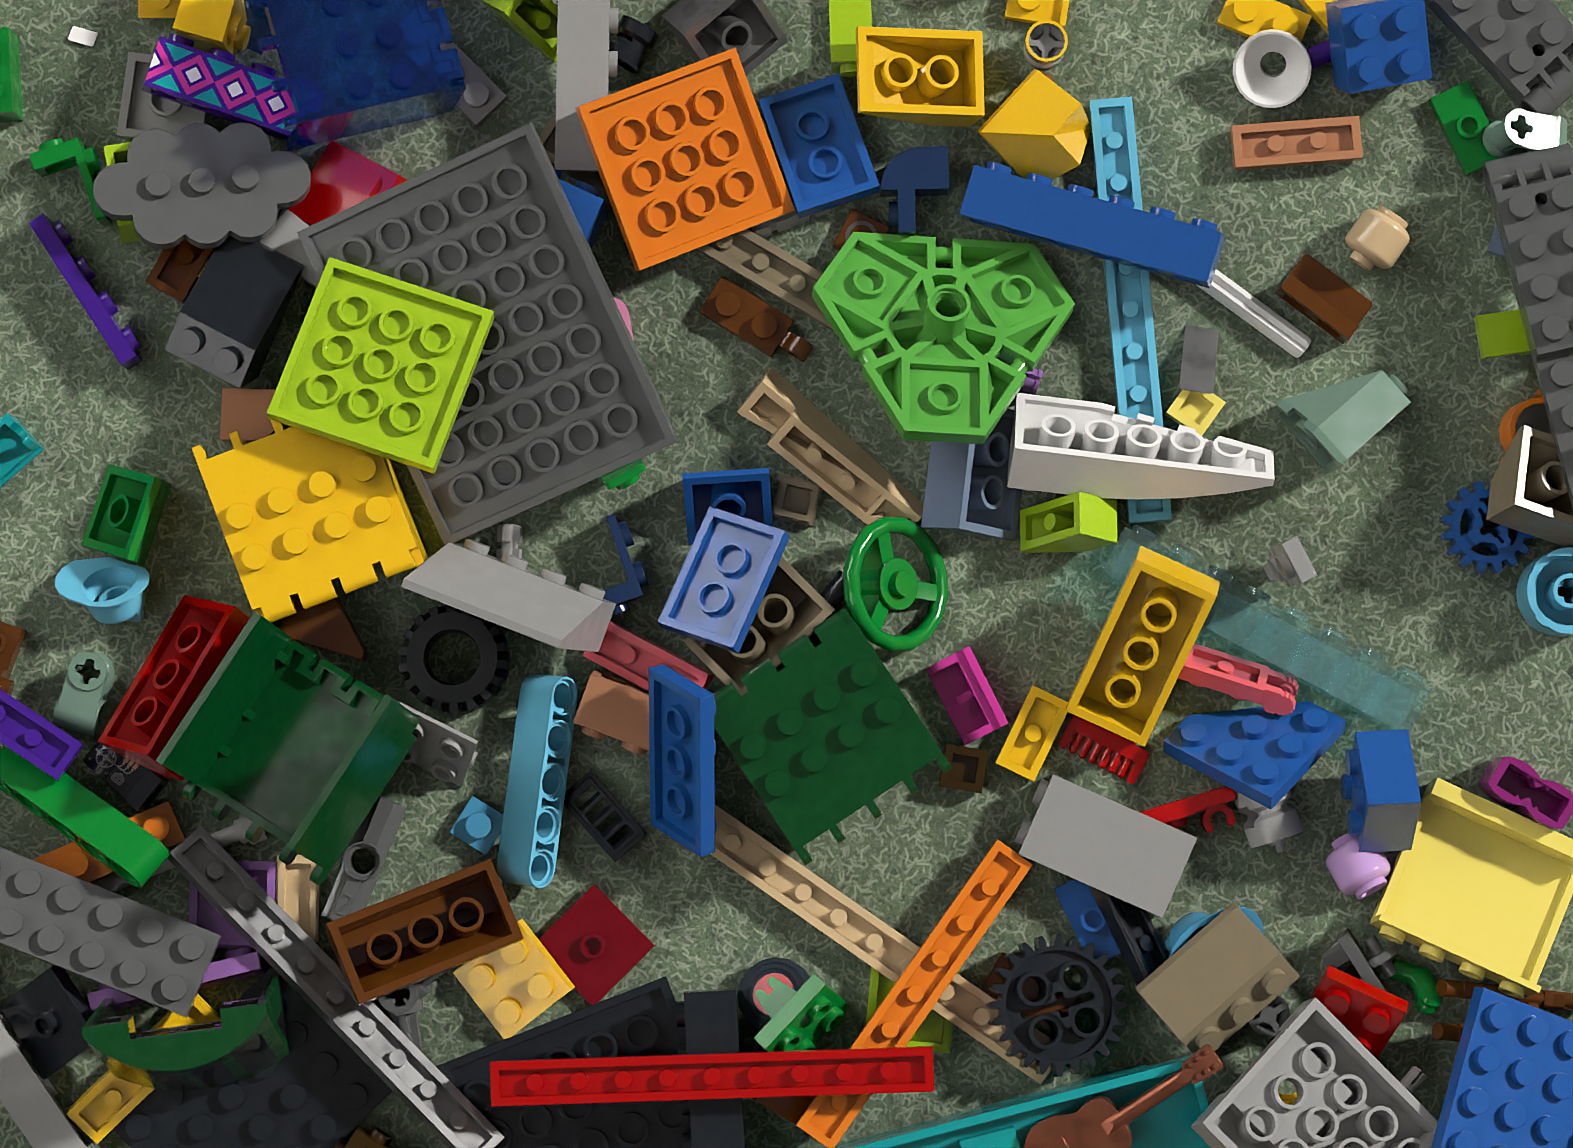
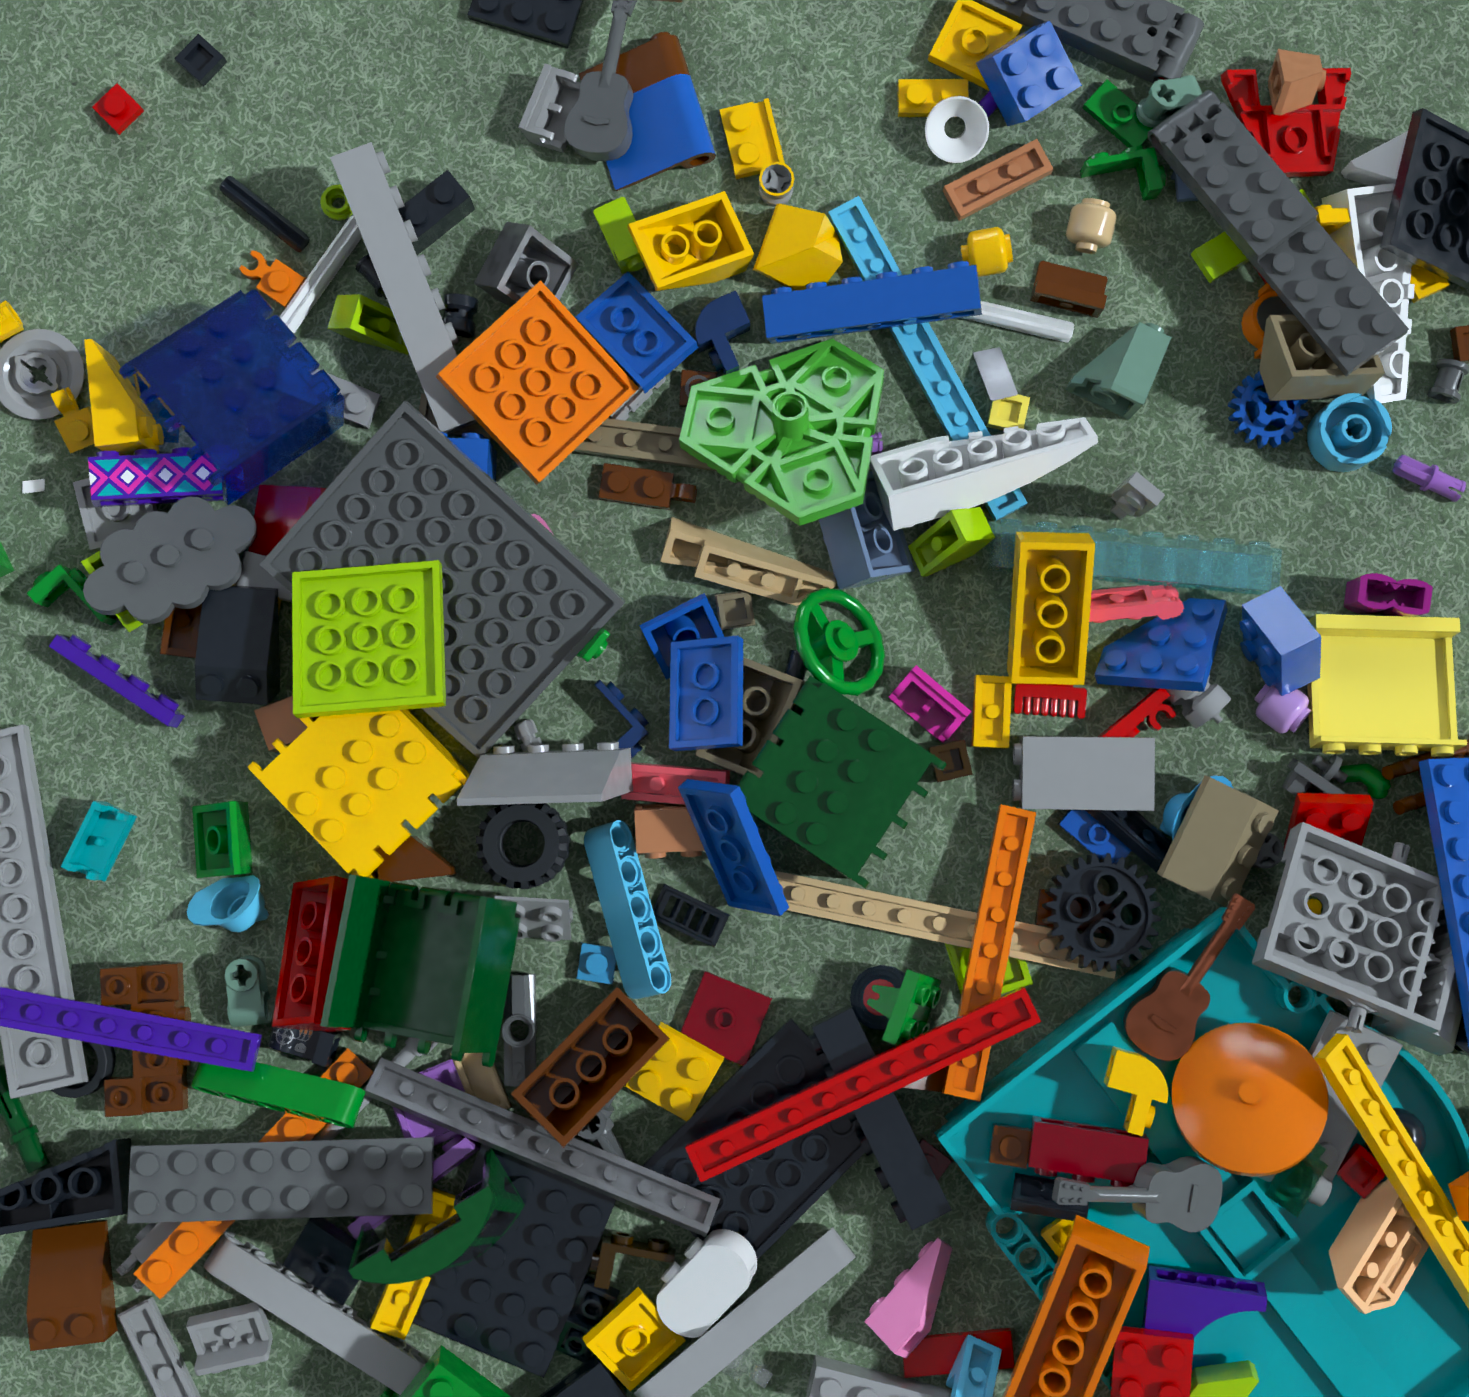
camera: 25 degrees left, 0 degrees up
(1248, 219) = (988, 251): none -> yellow head
(1469, 209) = (1149, 173): none -> green bracket

